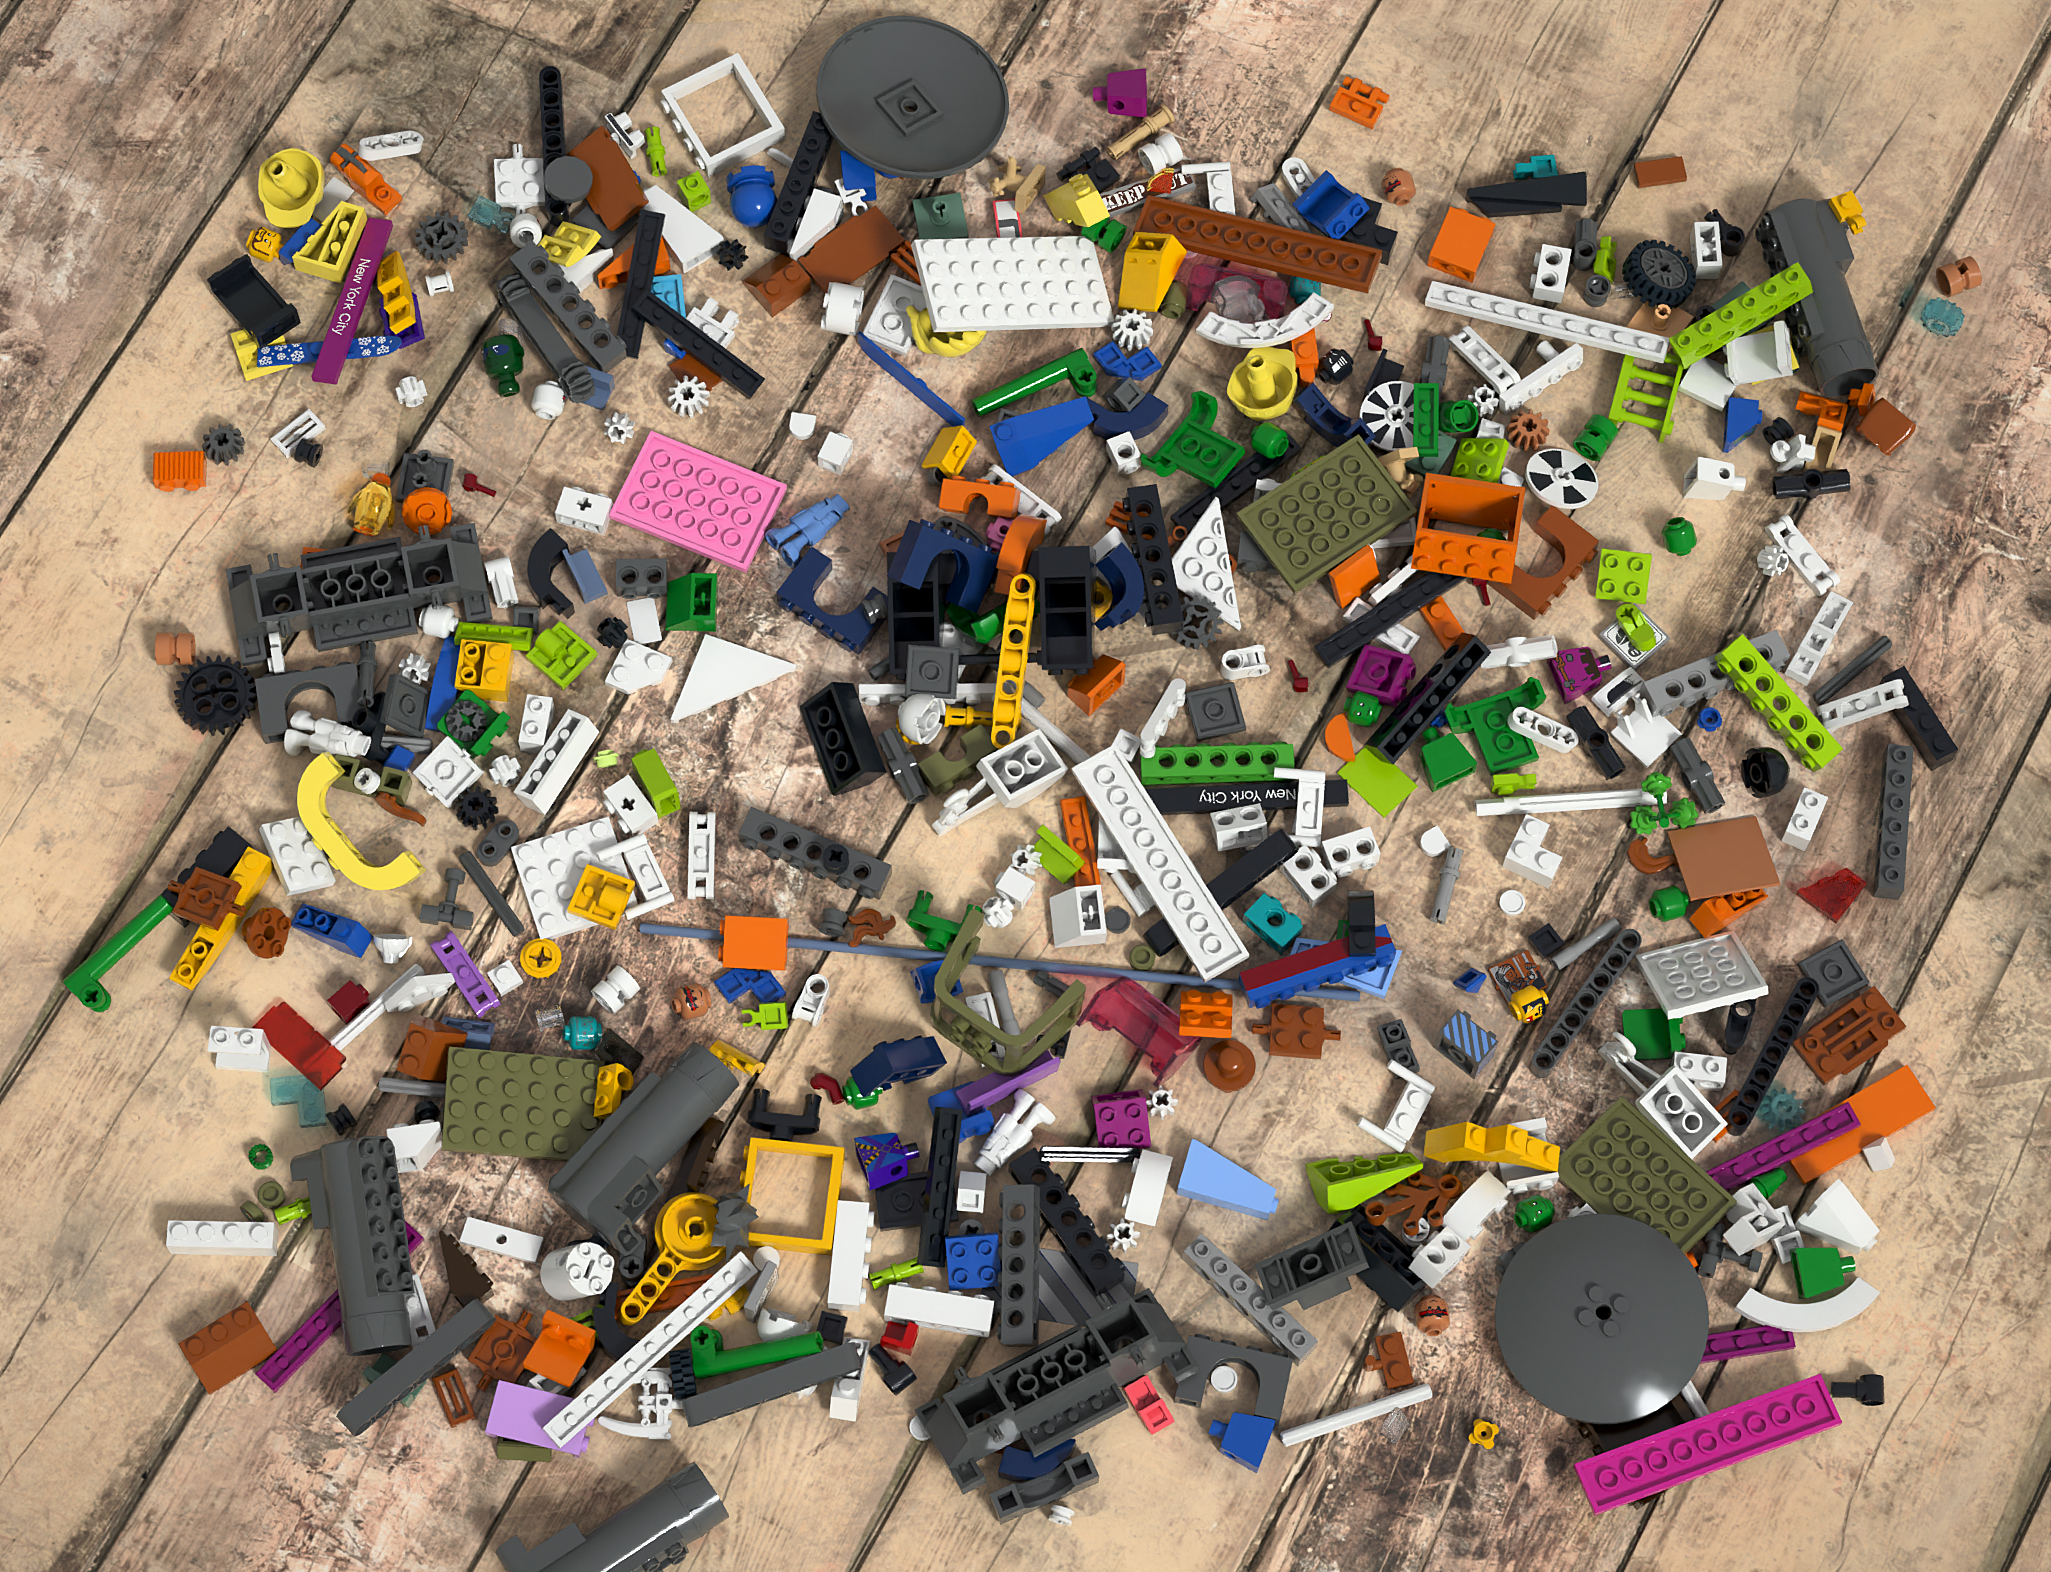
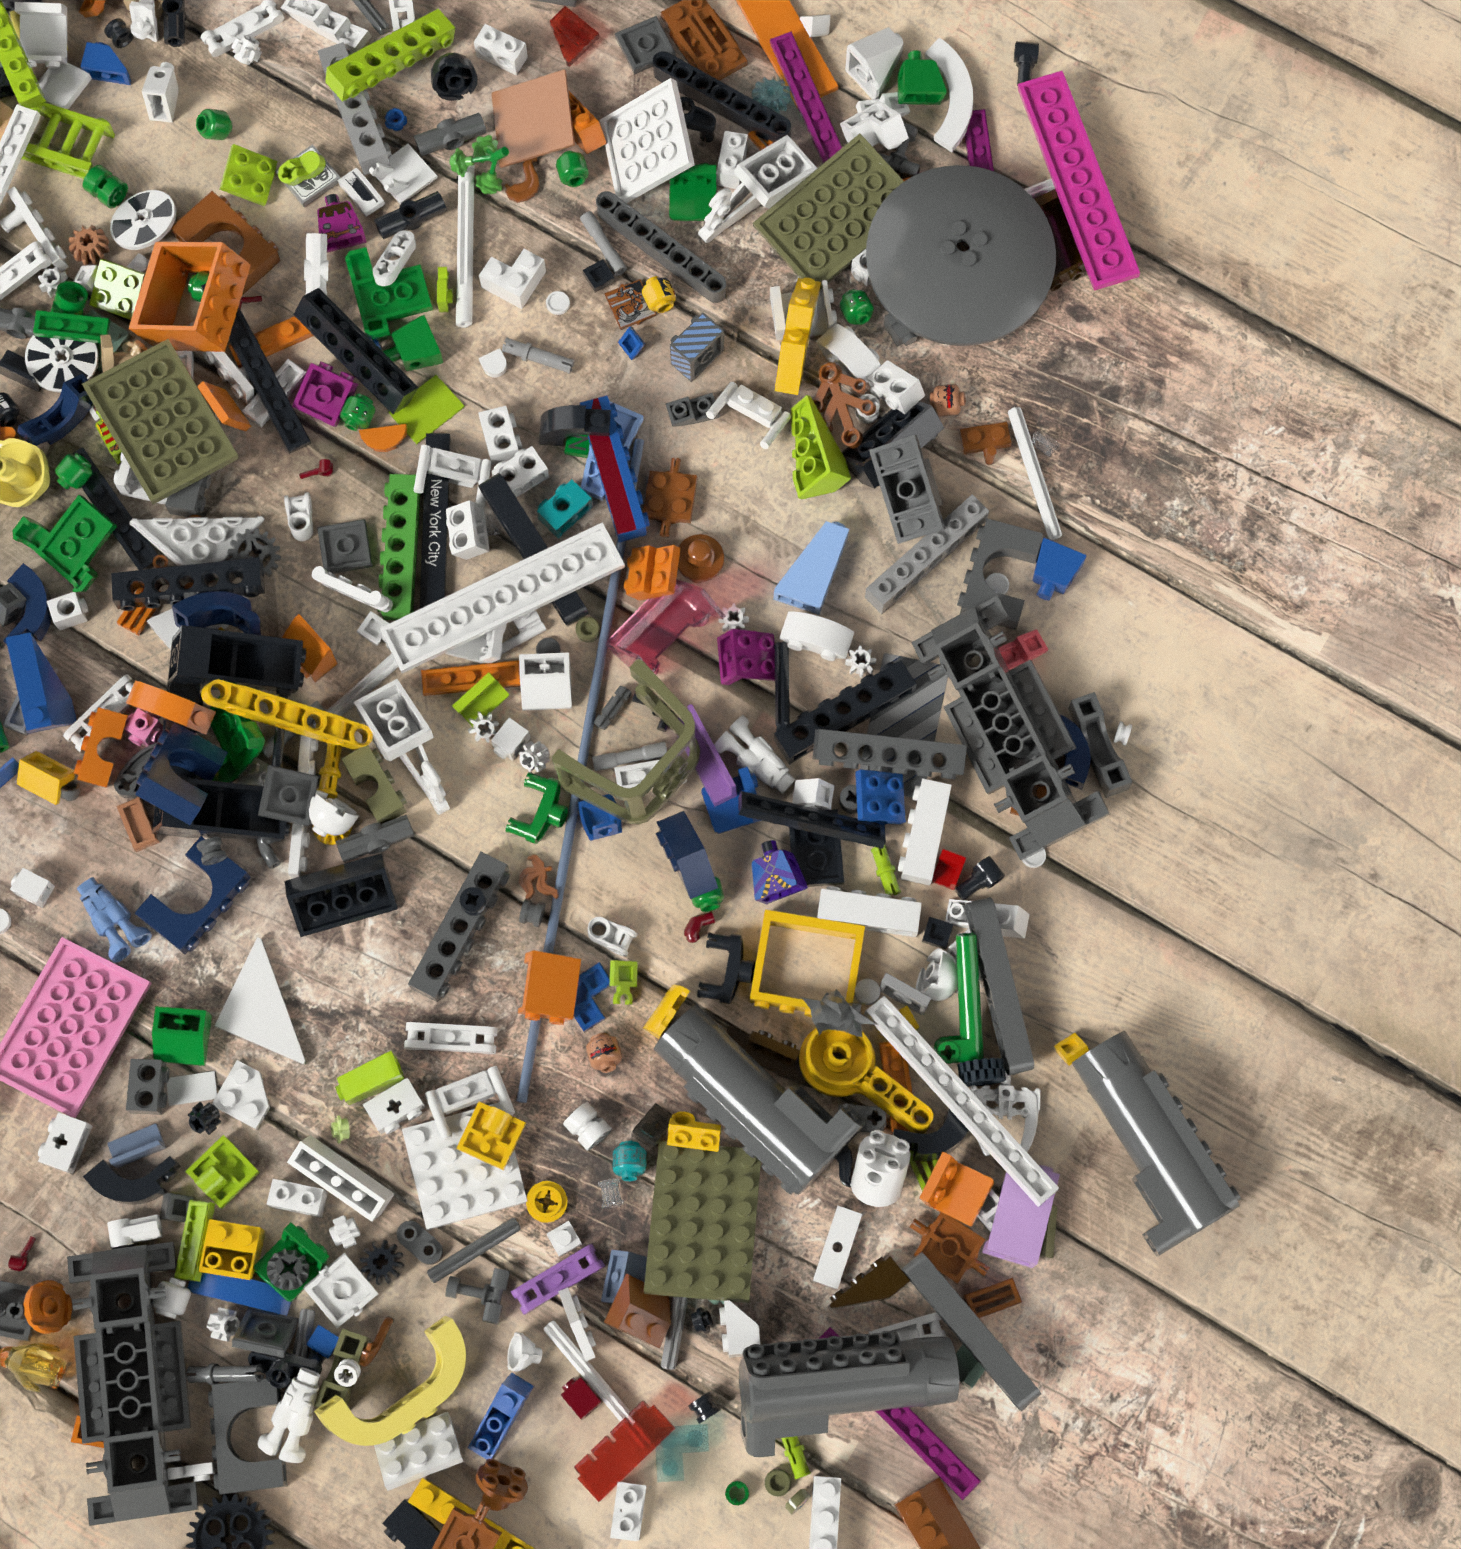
camera: 85 degrees left, 5 degrees up
(714, 1468) = (1071, 1048): none -> yellow plate
(1482, 1426) = (1059, 363): yellow plate -> none
(1769, 1182) = (836, 114): green cone -> none

